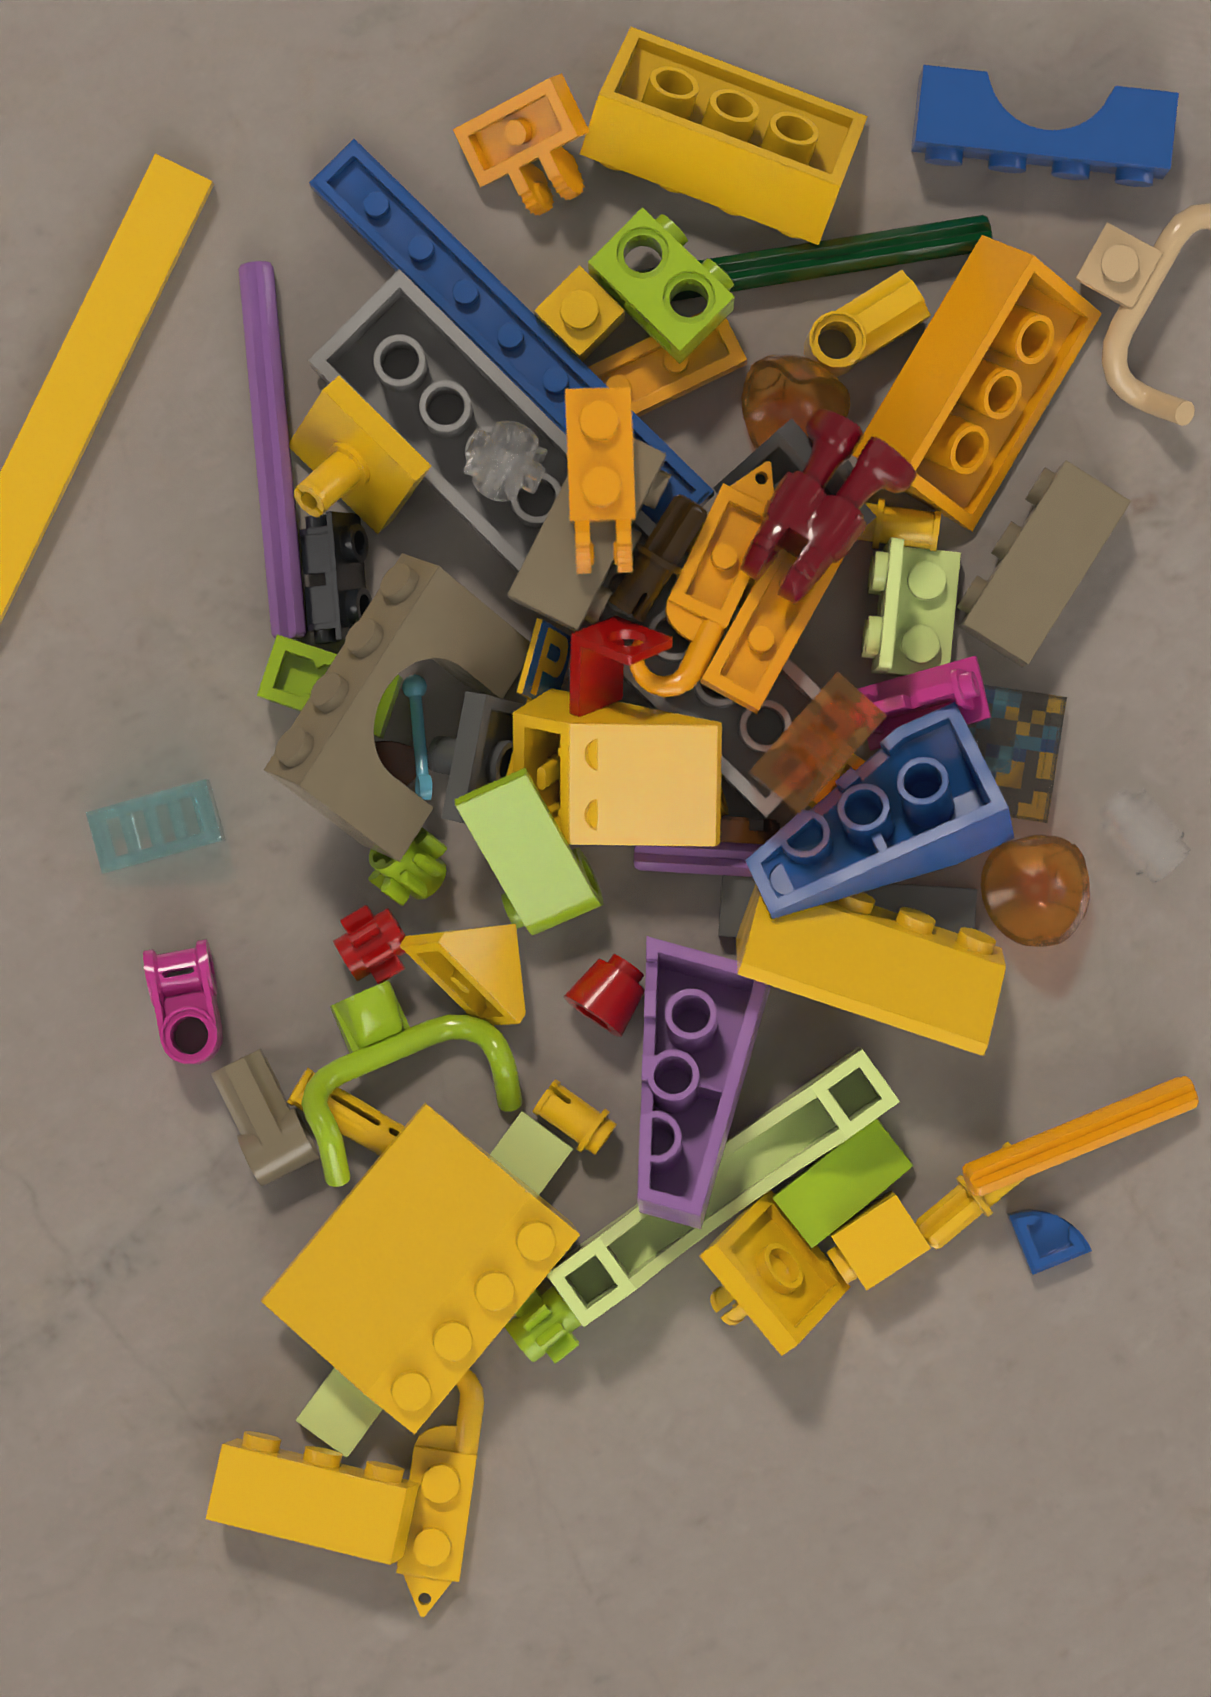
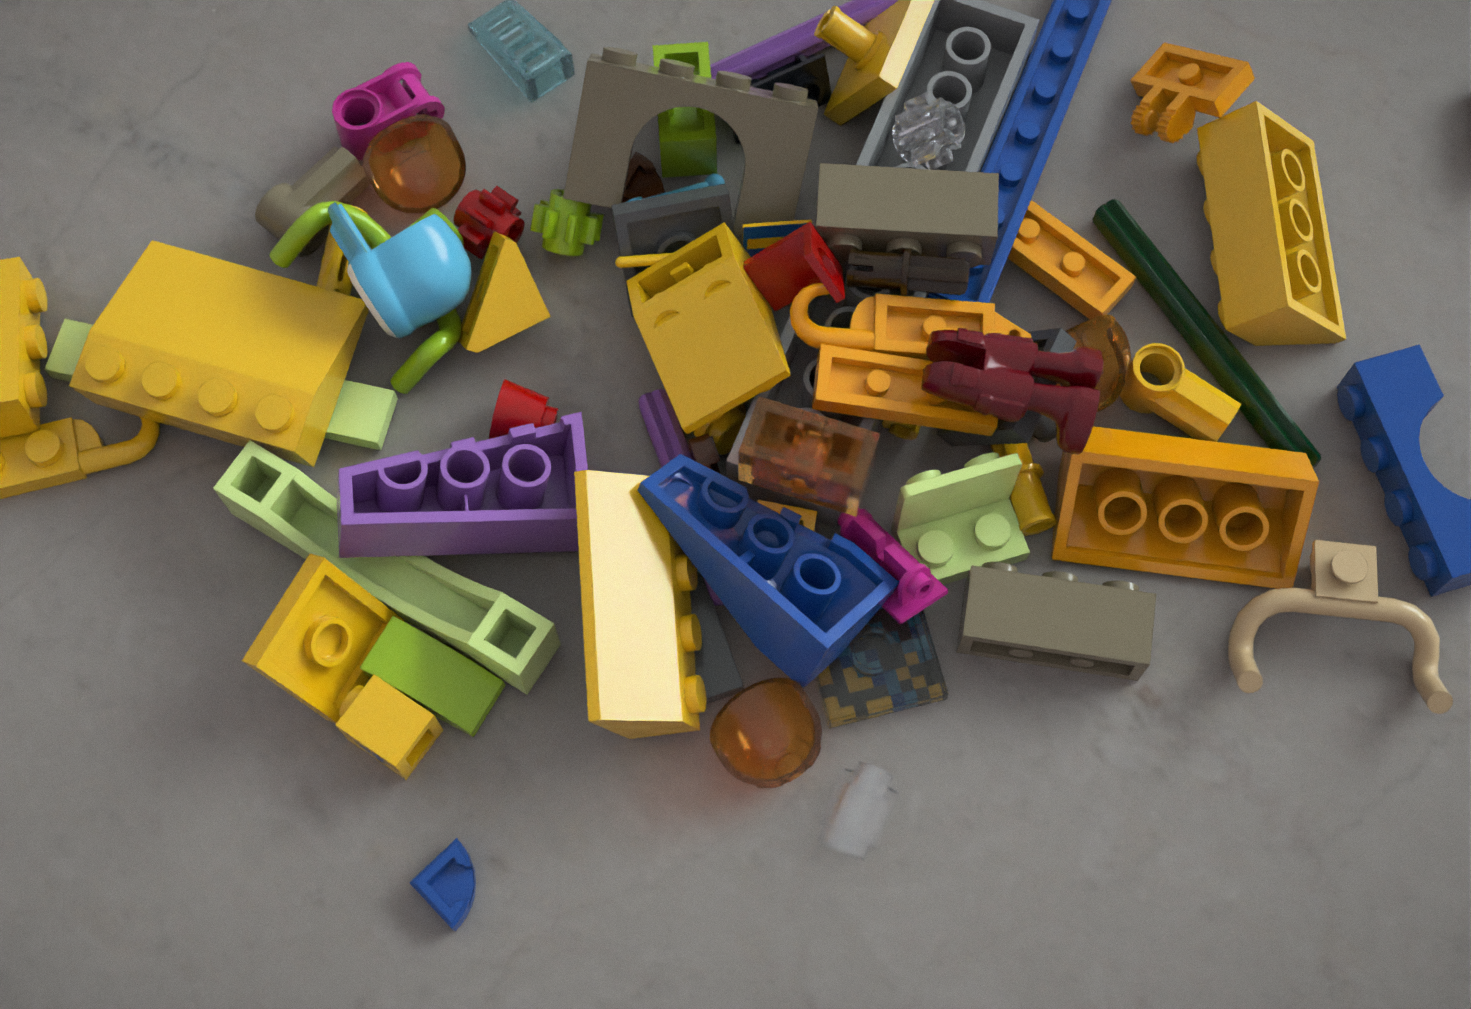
camera: 65 degrees right, 20 degrees down
(268, 997) = (415, 164): none -> clear orange helmet
(421, 1056) = (407, 277): none -> medium azure piece
(529, 854) = (608, 291): lime door -> none
(544, 1326) = (201, 469): lime gear -> none
(575, 1117) = (406, 427): yellow pin -> none
(580, 313) = (1071, 177): yellow brick -> none
(600, 469) = (954, 188): light orange hinge -> none
(649, 294) = (1127, 216): lime brick -> none
(957, 1211) = (462, 797): yellow axle -> none
(1080, 1136) = (555, 867): light orange axle -> none

